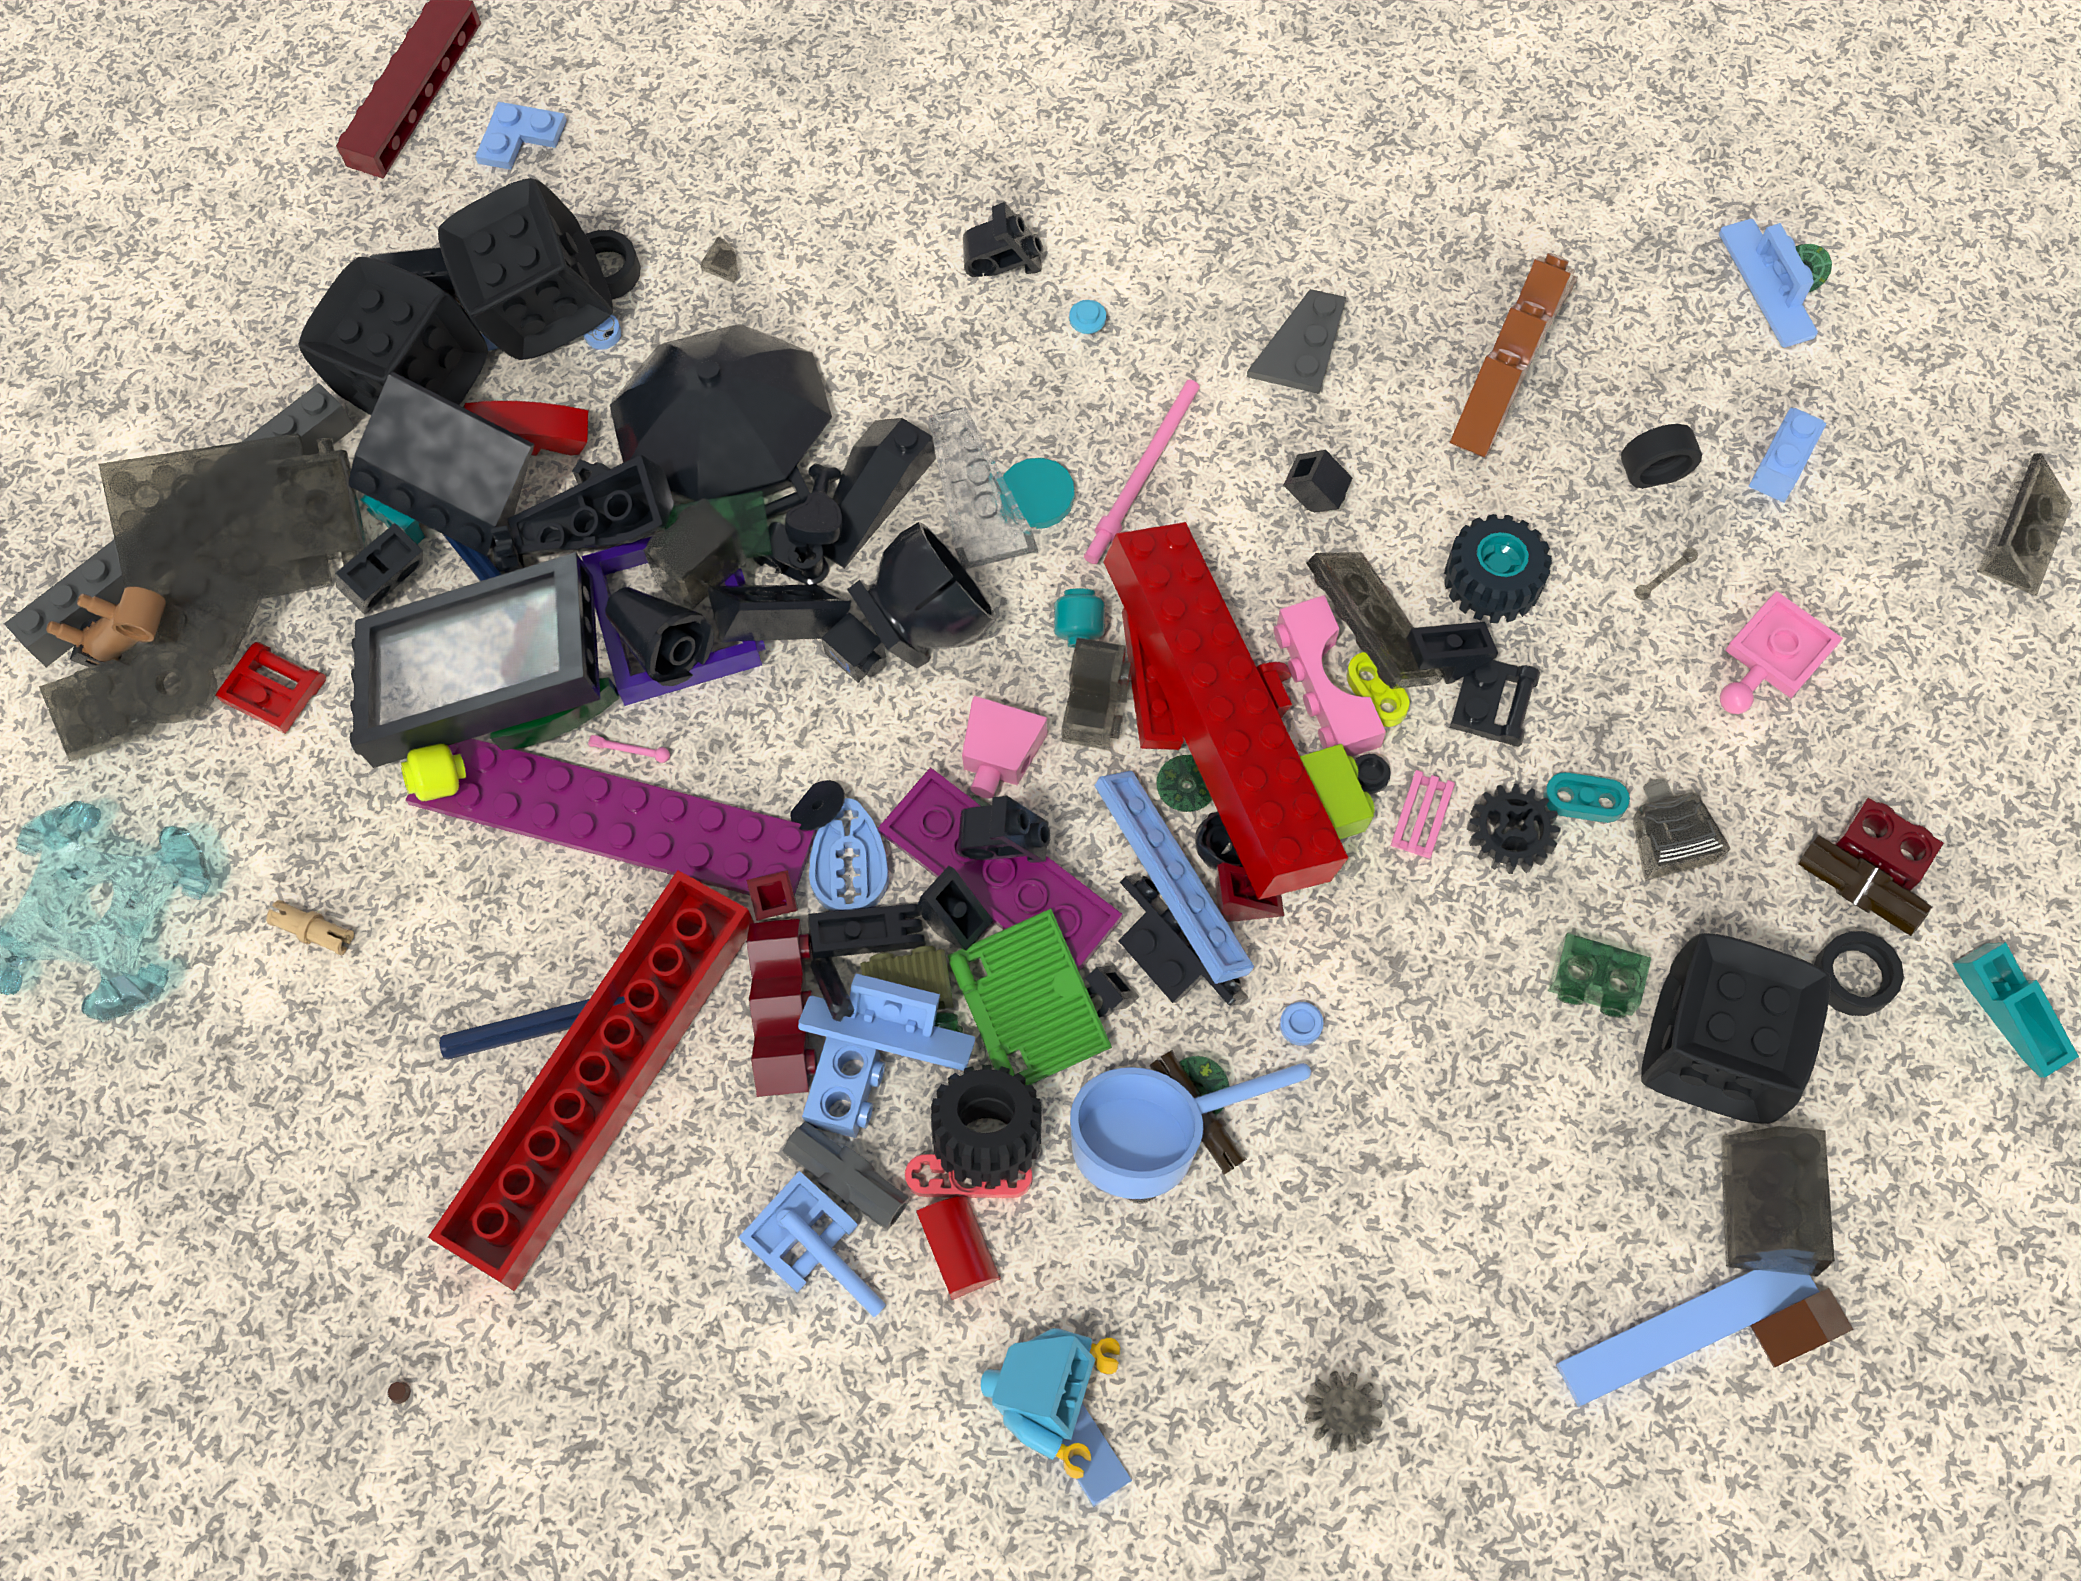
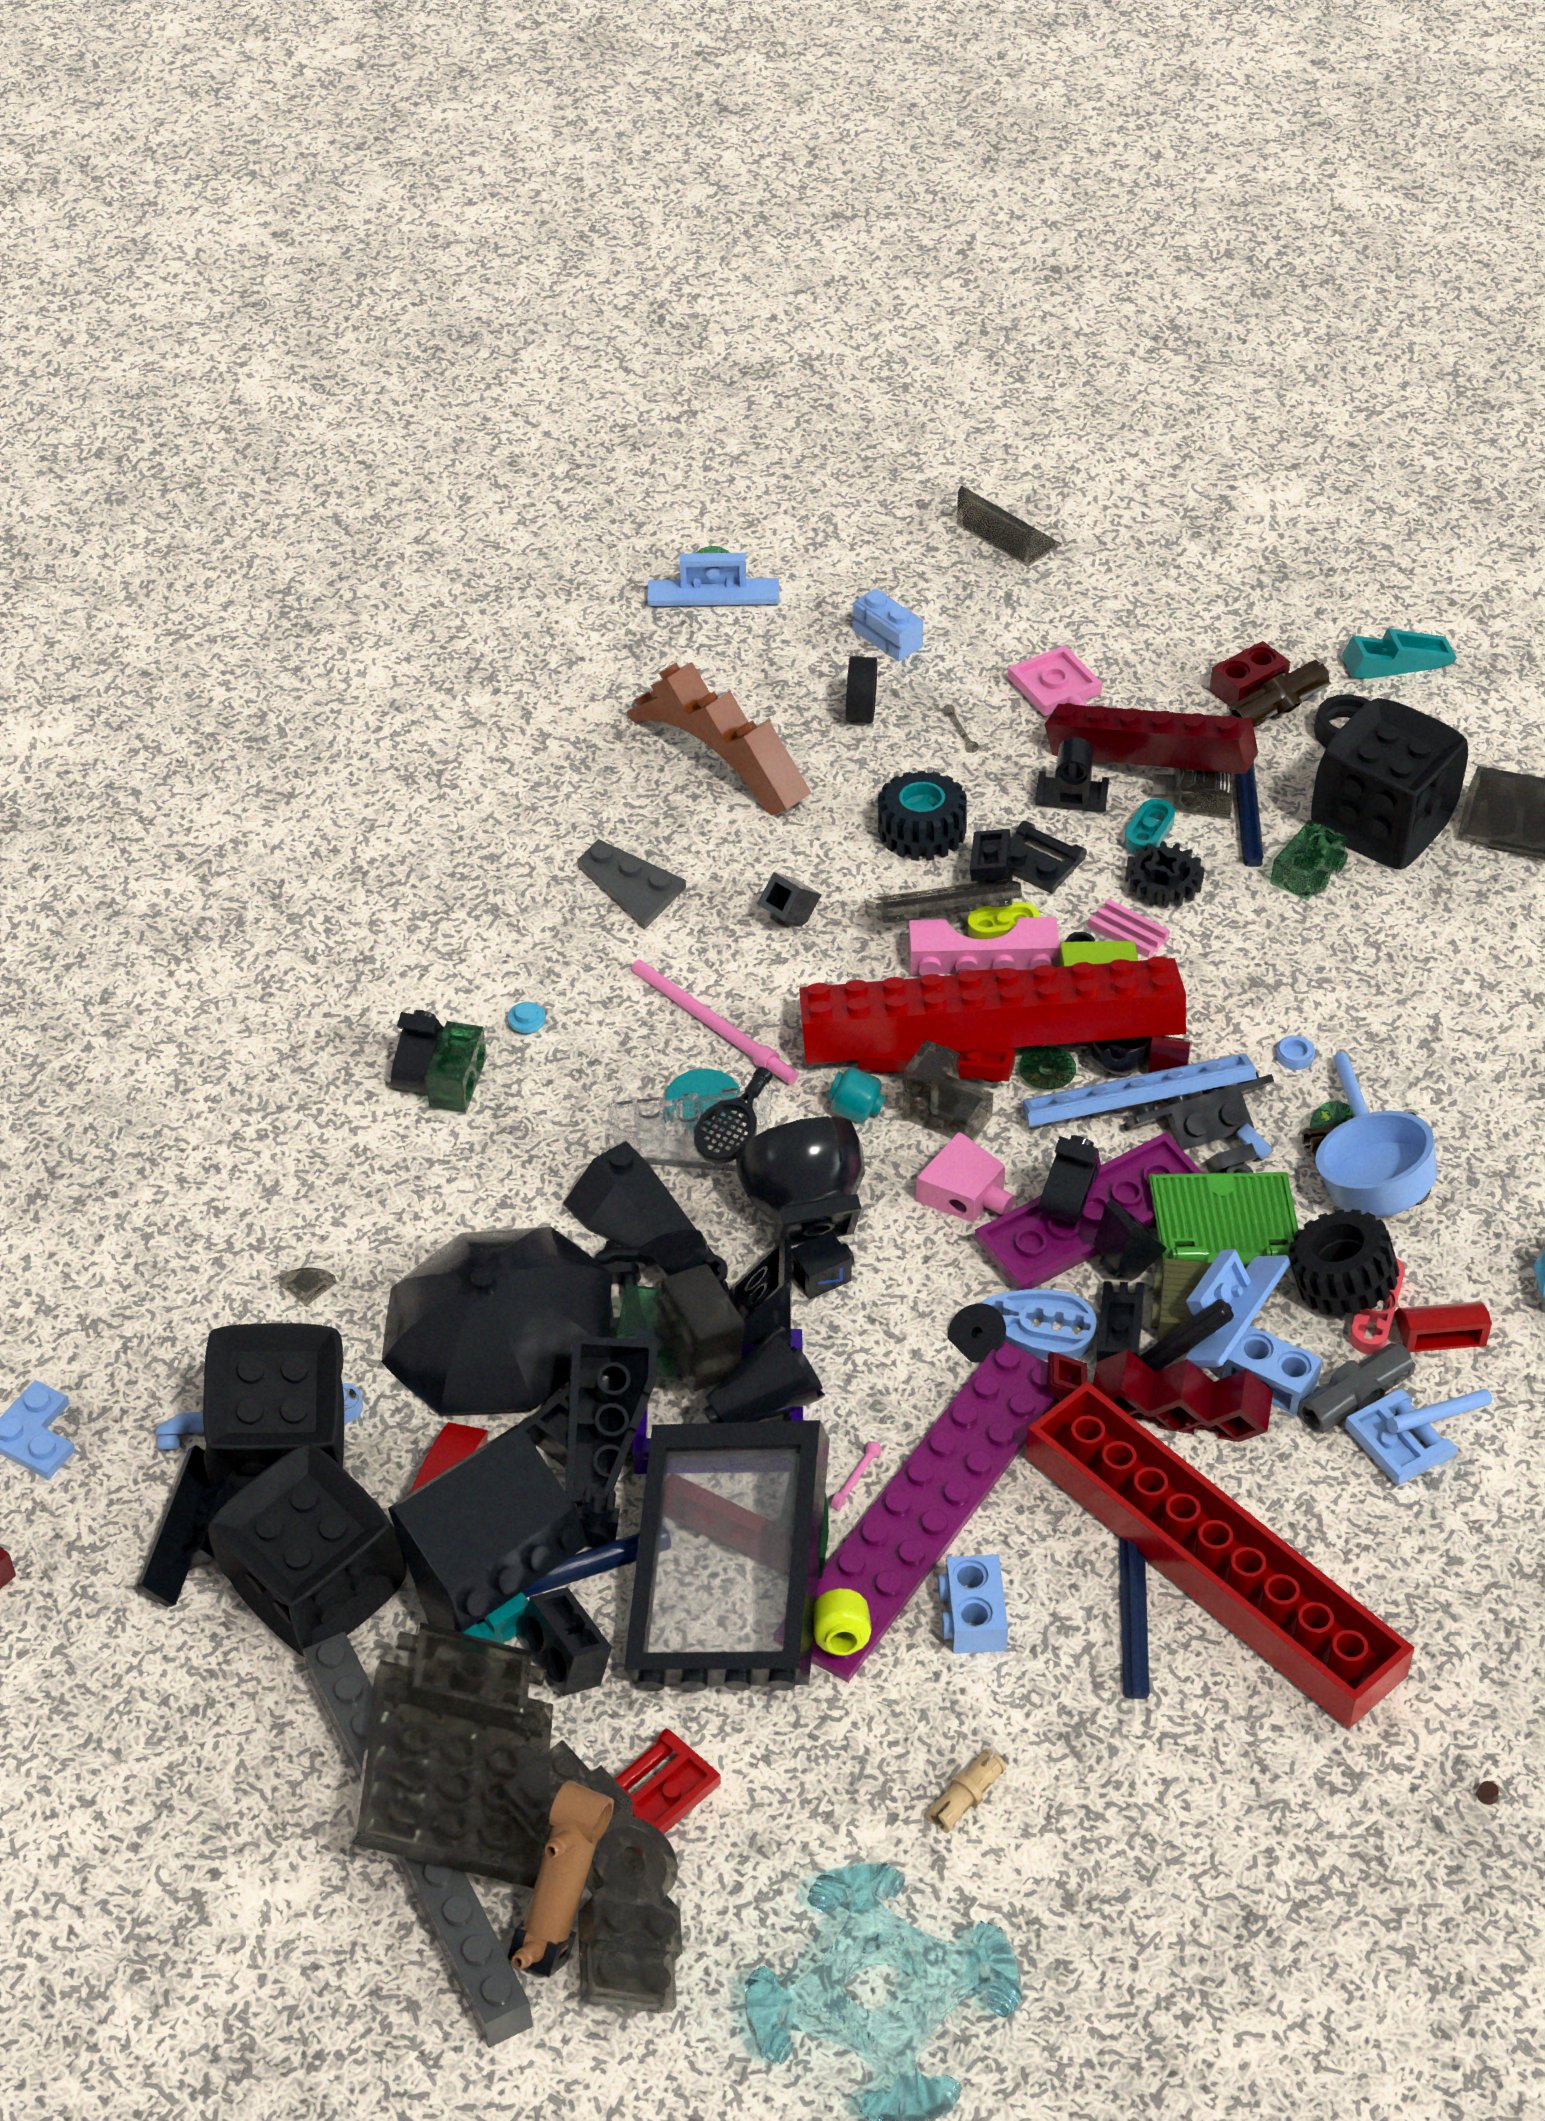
camera: 75 degrees left, 20 degrees down
(500, 892) = (979, 1605): none -> light blue brick
(990, 278) = (456, 1066): none -> clear green brick
(1010, 515) = (760, 1078): none -> black piece
(1148, 1006) = (1250, 1135): none -> light blue tile
(1613, 701) = (1072, 779): none -> black pin
(1676, 892) = (1249, 818): none -> dark blue axle
(1699, 760) = (1157, 737): none -> dark red brick

